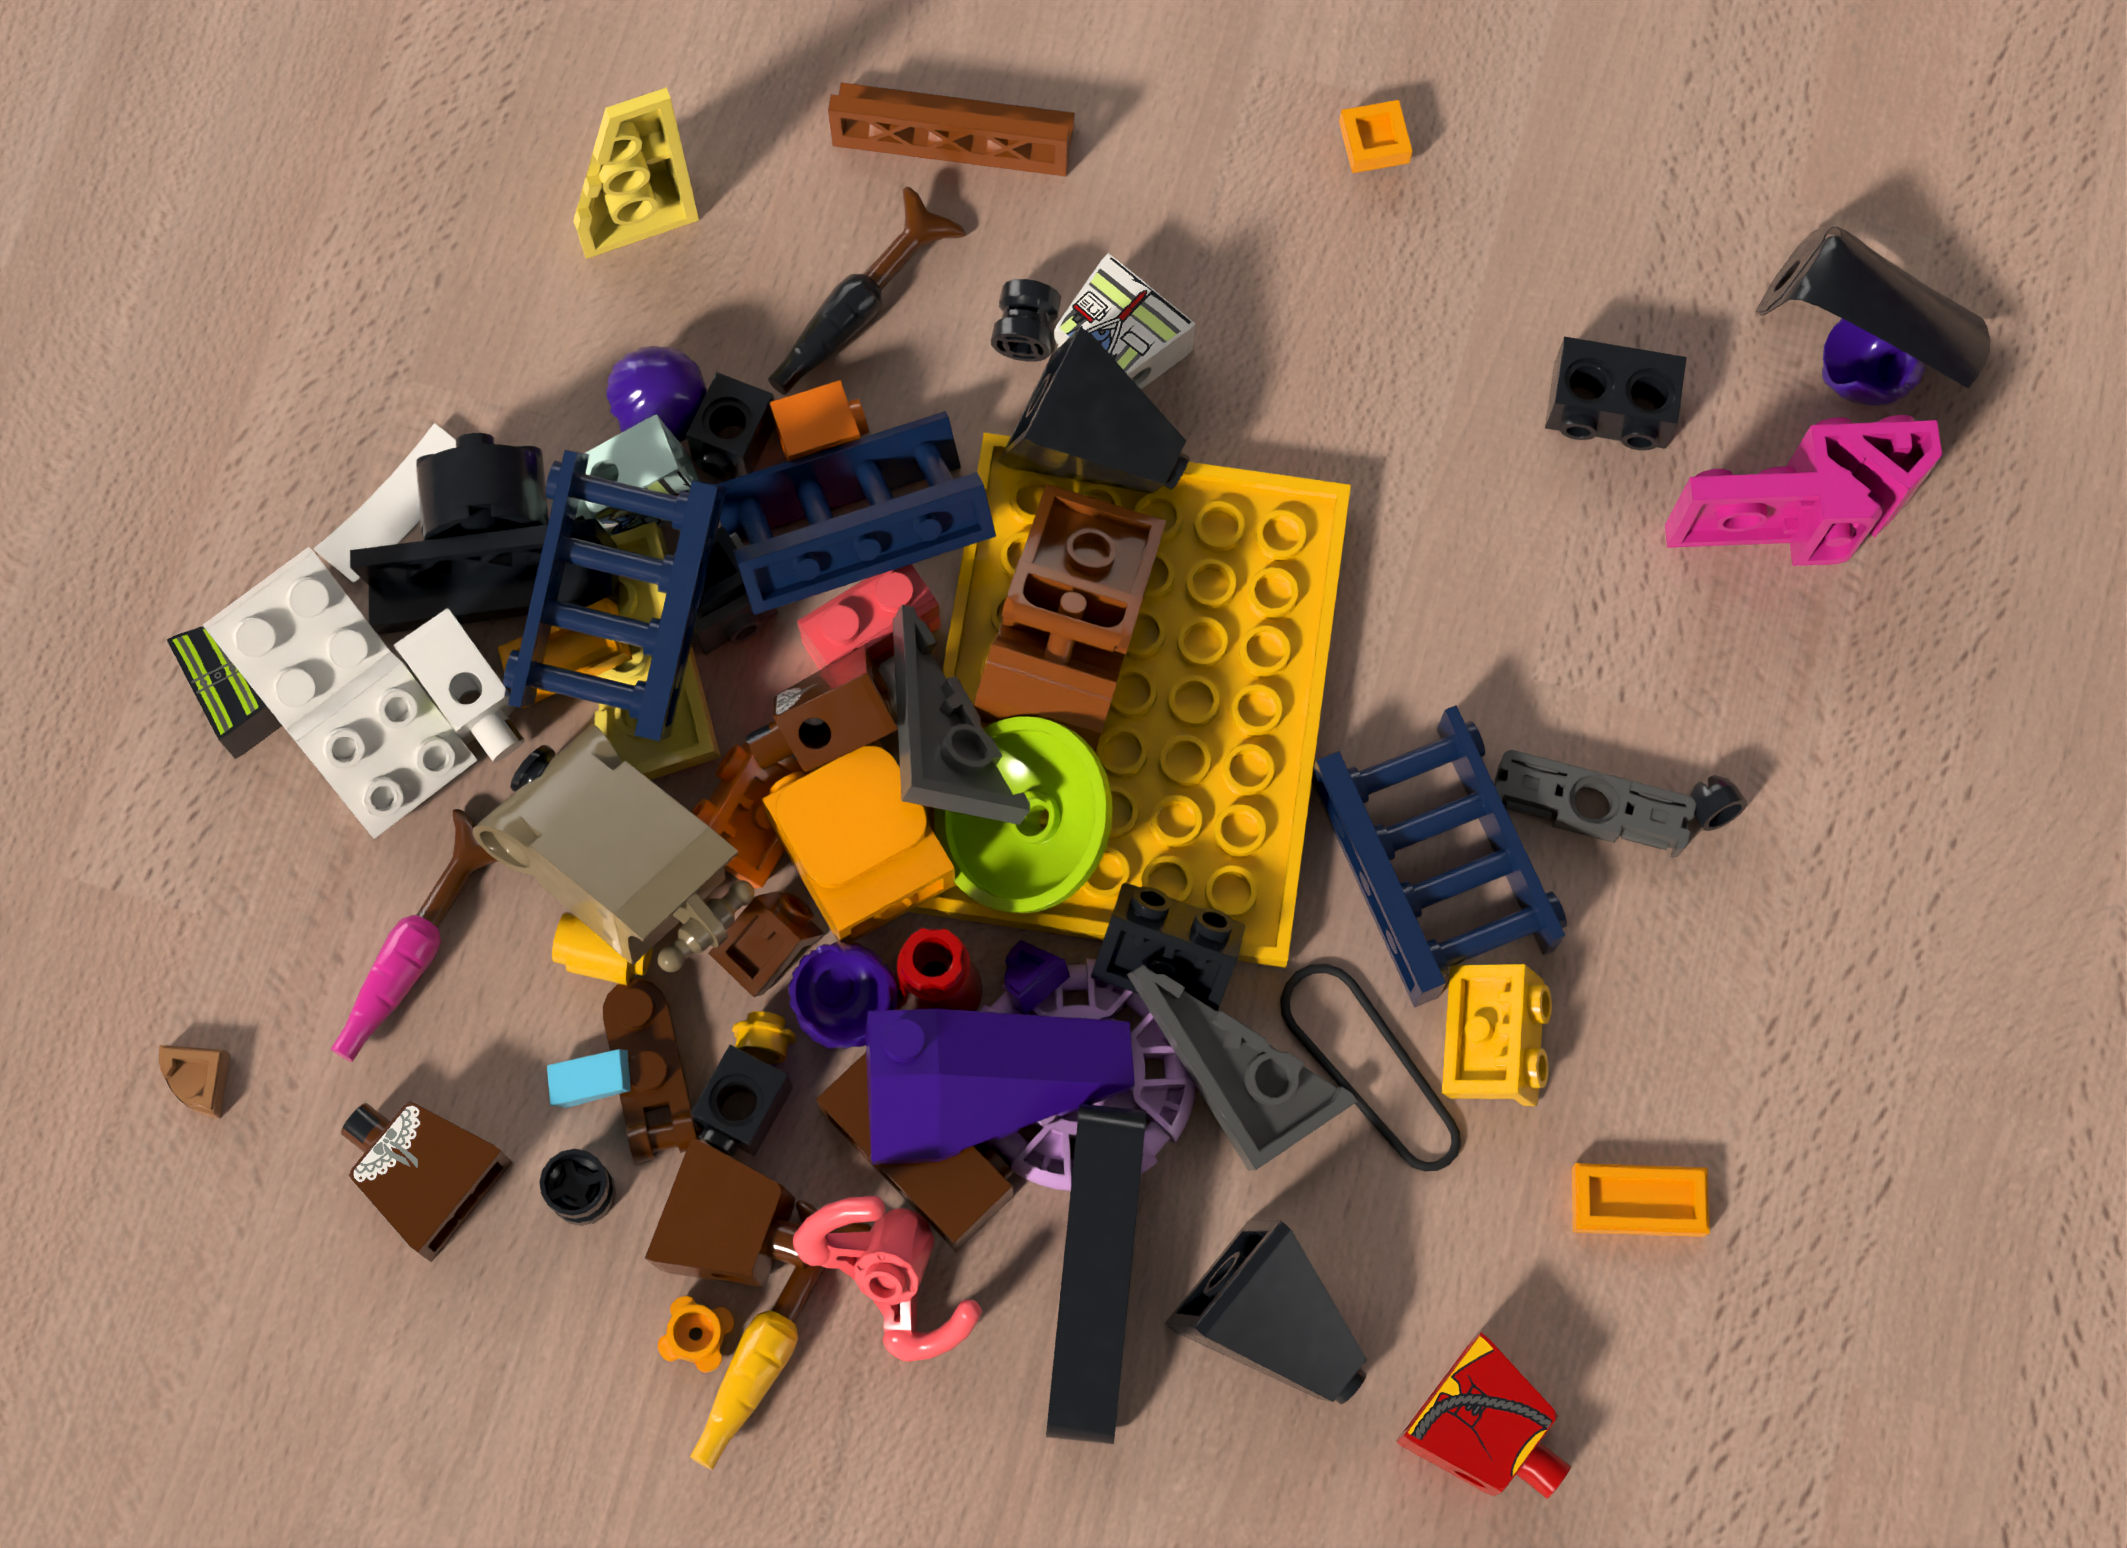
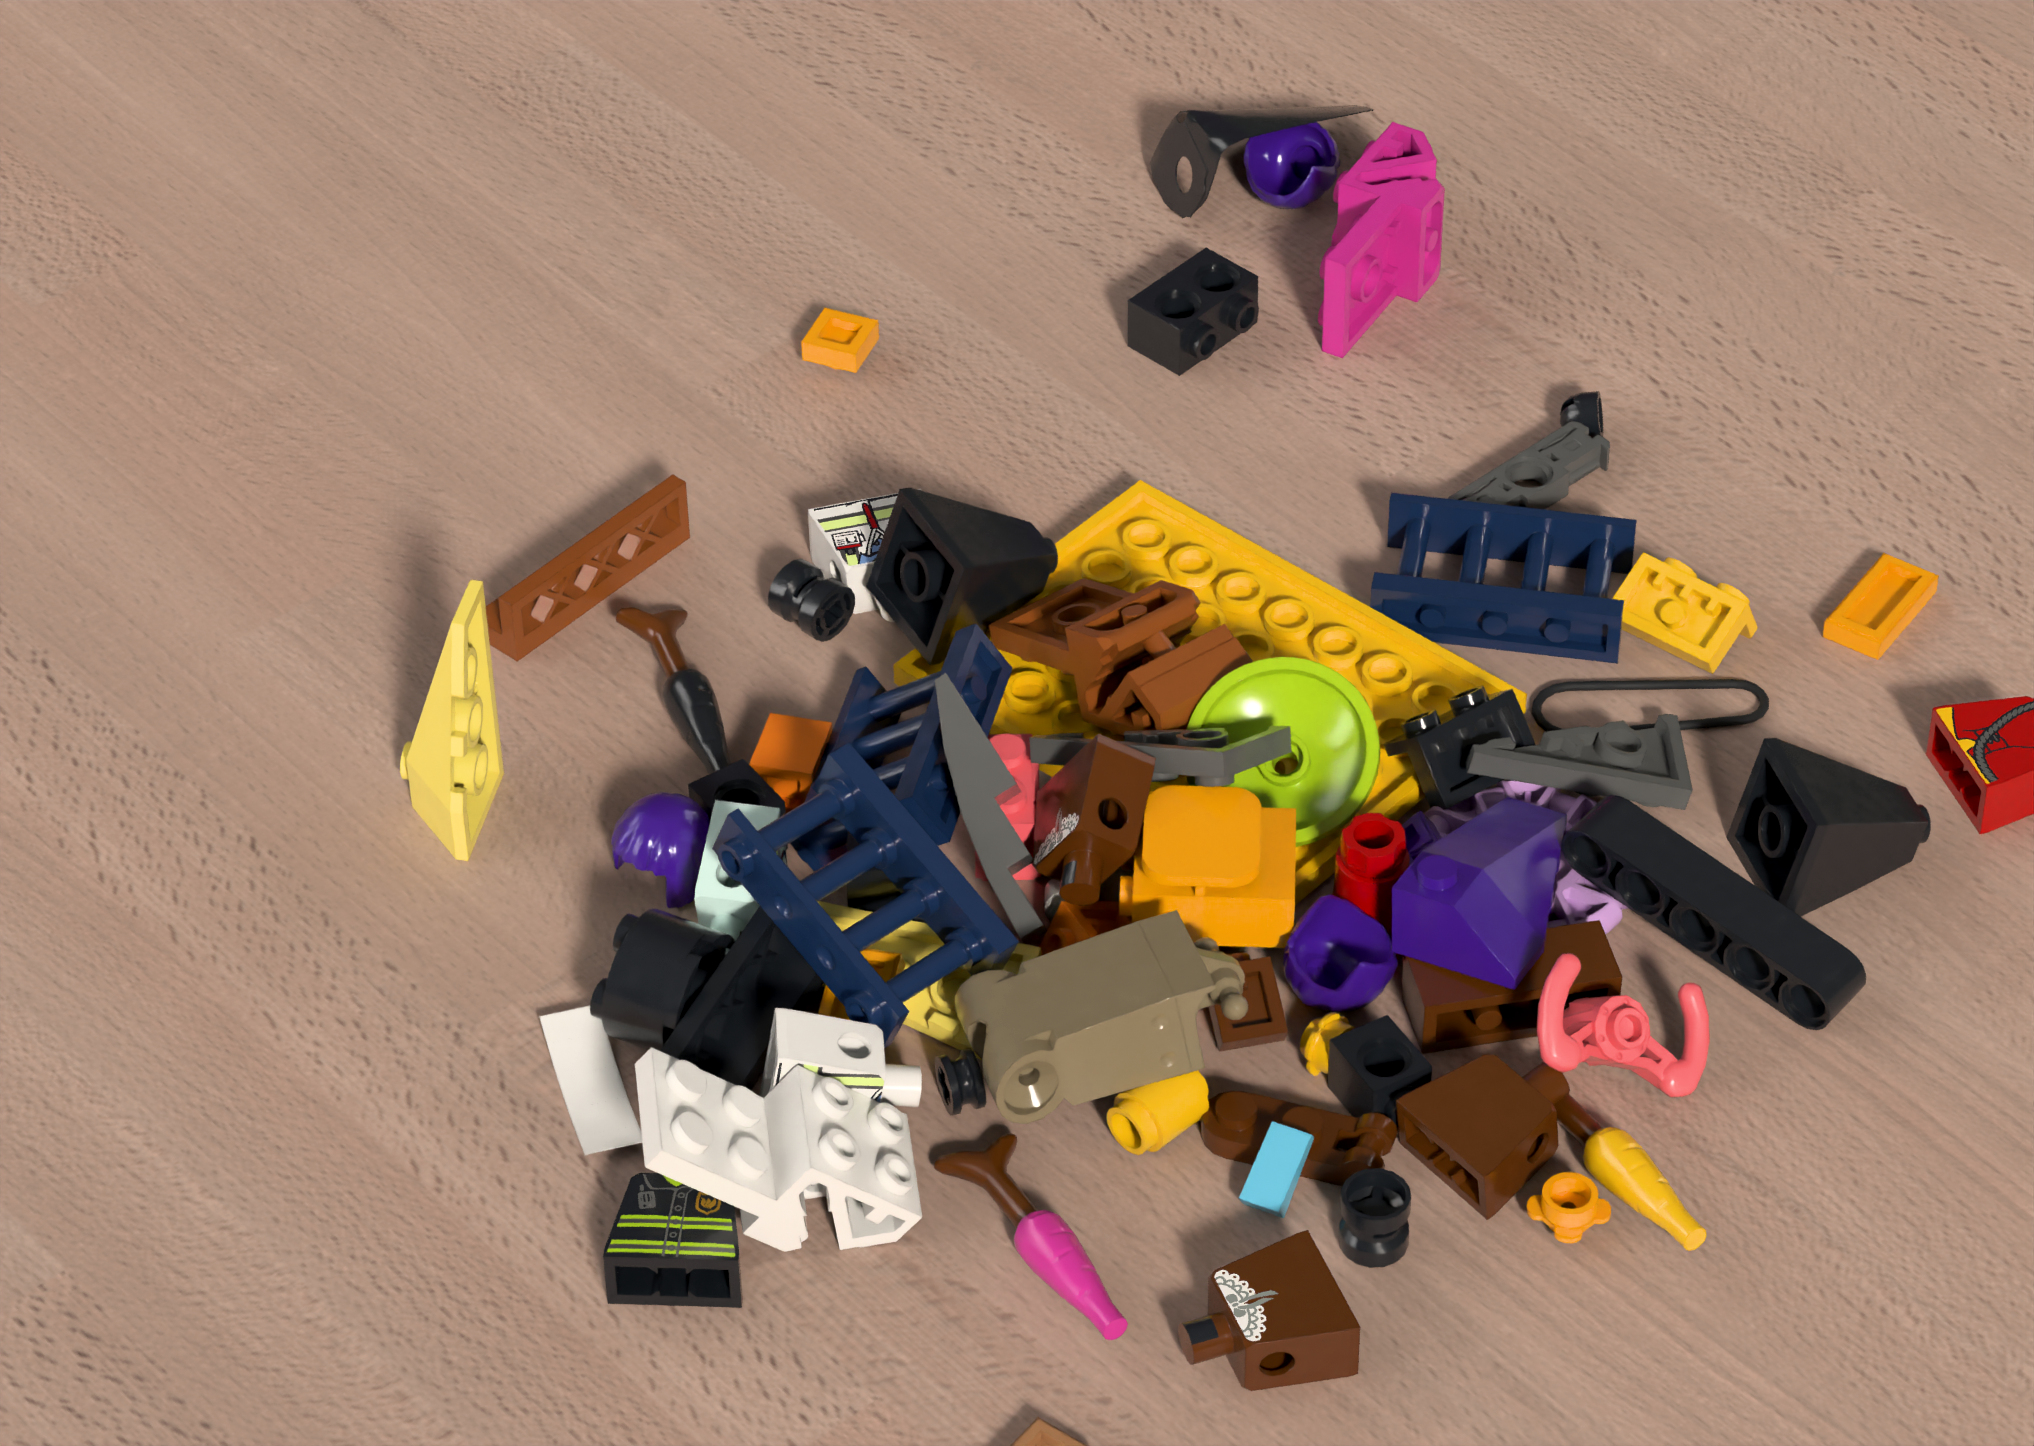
camera: 55 degrees left, 30 degrees down
(798, 606) = (980, 788): none -> dark grey slope

